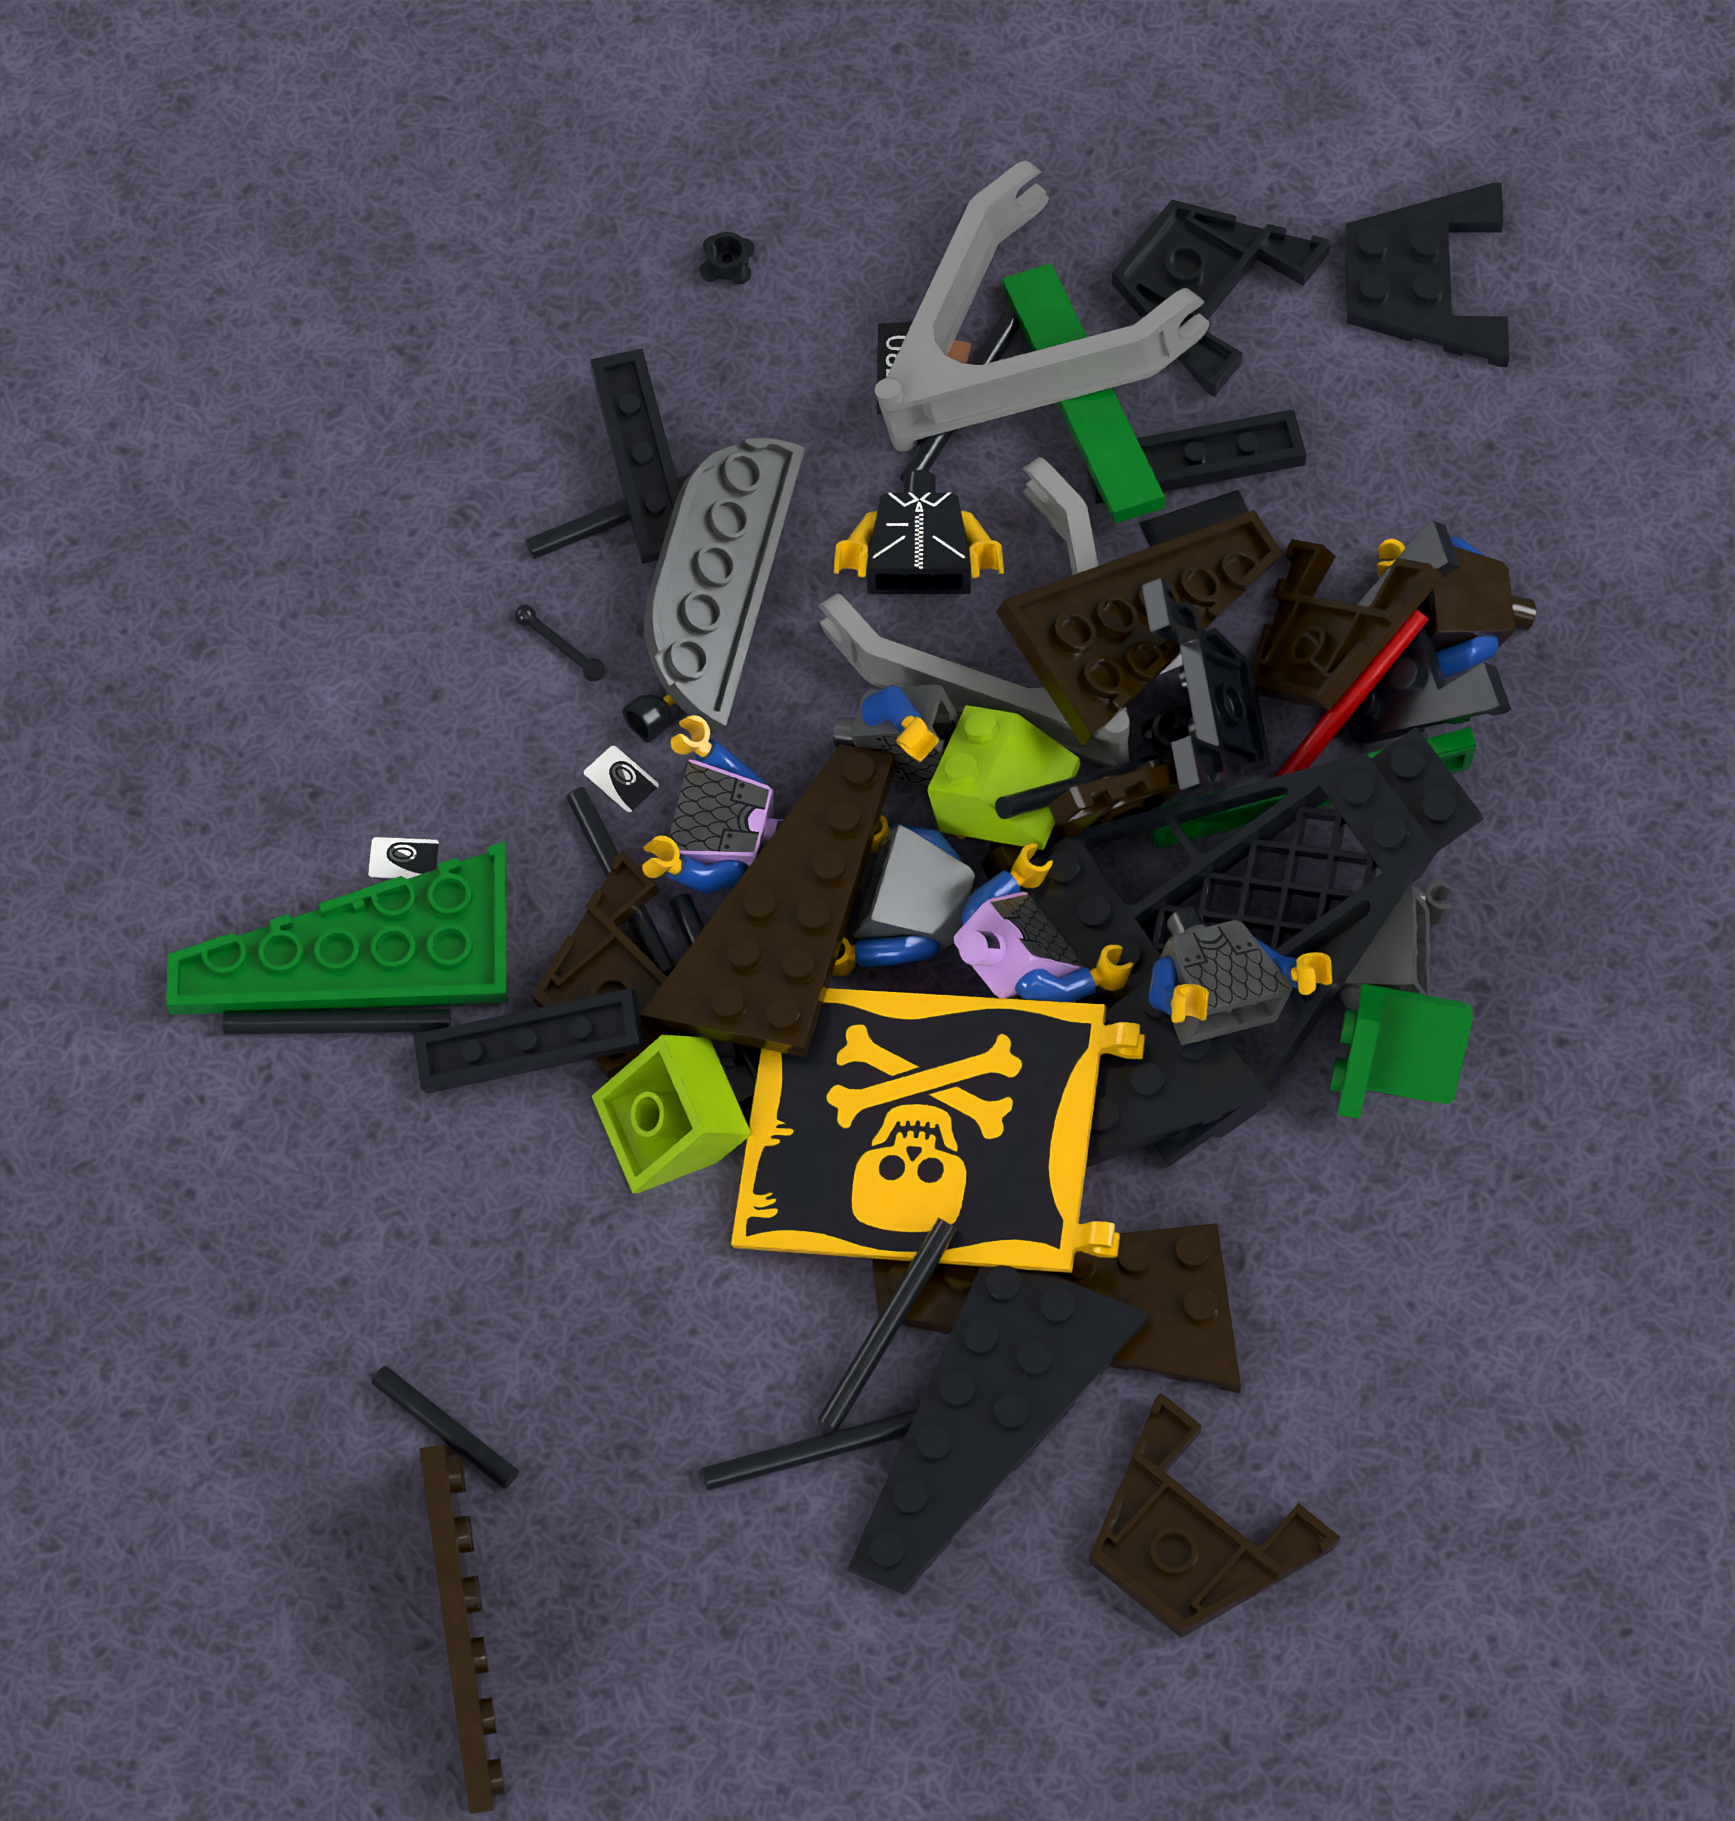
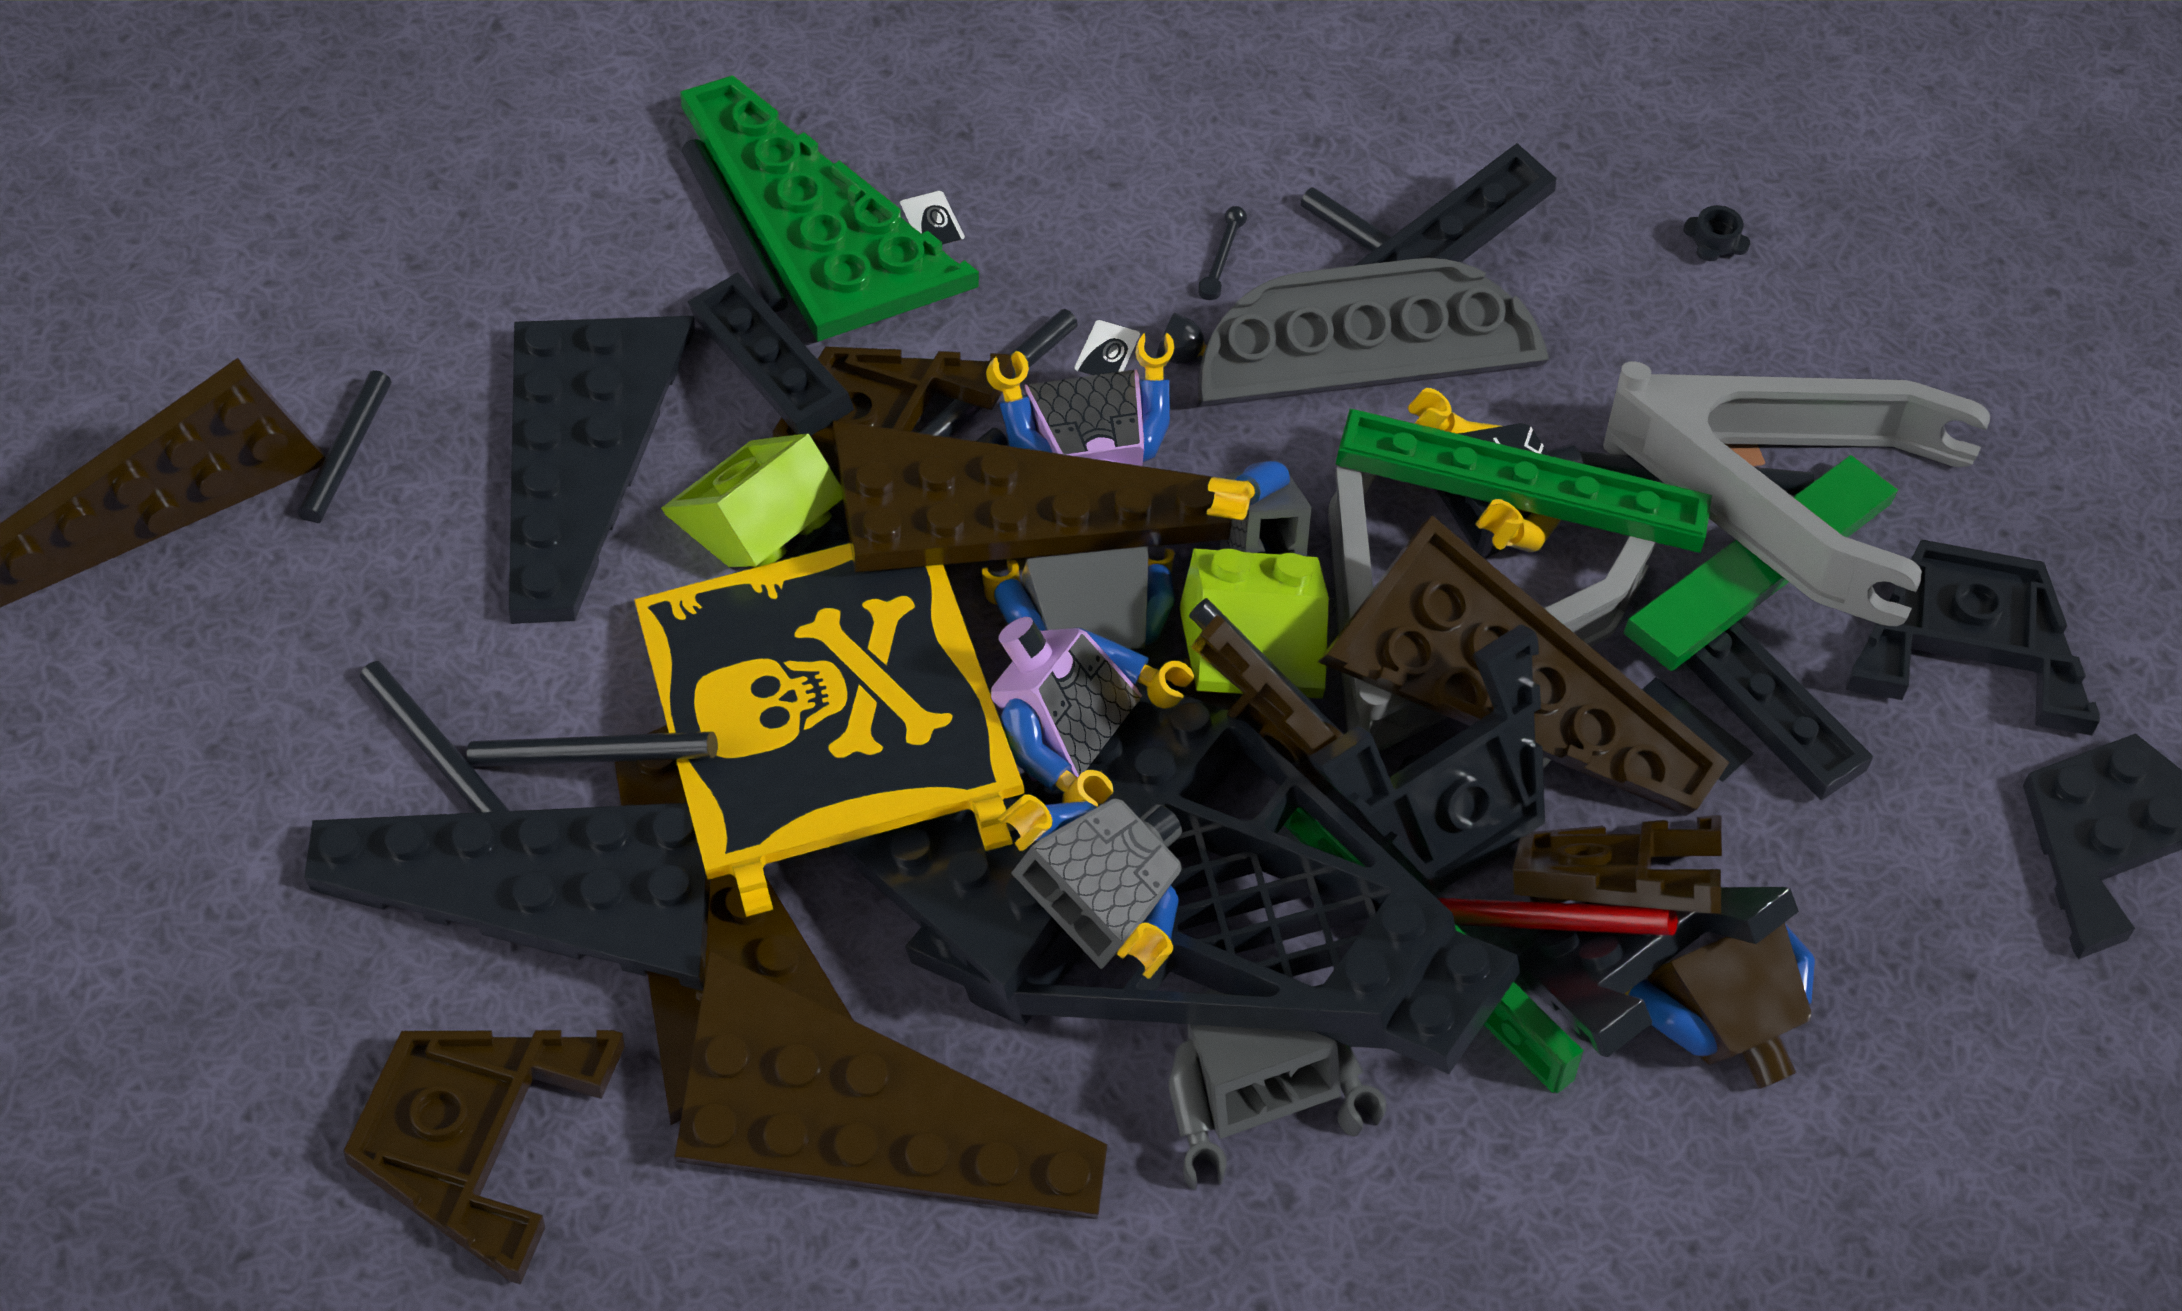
camera: 60 degrees right, 10 degrees down
(508, 1222) = (578, 434): none -> black wing
(945, 524) = (1525, 480): none -> green tile
(1284, 1263) = (830, 1101): none -> dark brown wing
(1400, 1047) = (1146, 1107): green bracket -> none

